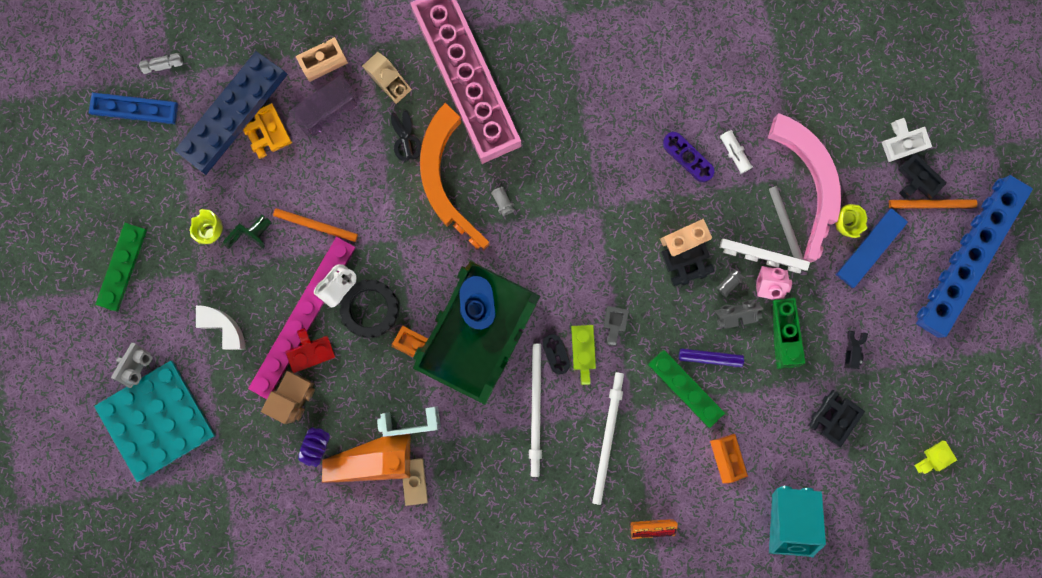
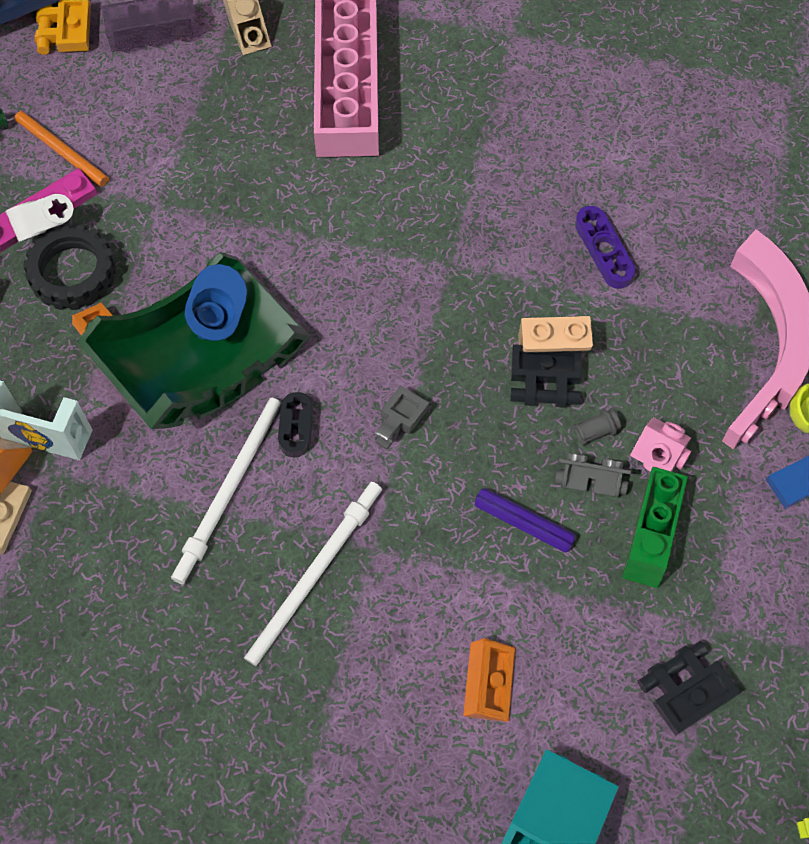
camera: 25 degrees right, 20 degrees down
(404, 131) = (234, 91): black piece -> none
(433, 144) = (249, 125): orange arch -> none
(502, 201) = (320, 212): light grey pin -> none
(583, 351) = (336, 437): lime plate -> none
(653, 528) = (318, 737): slope -> none
(686, 389) = (467, 550): green plate -> none
(736, 151) = (676, 264): white pin -> none
(773, 259) = (650, 396): white plate -> none
(796, 252) = (714, 382): light grey bar -> none
(854, 356) = (752, 603): black plate -> none

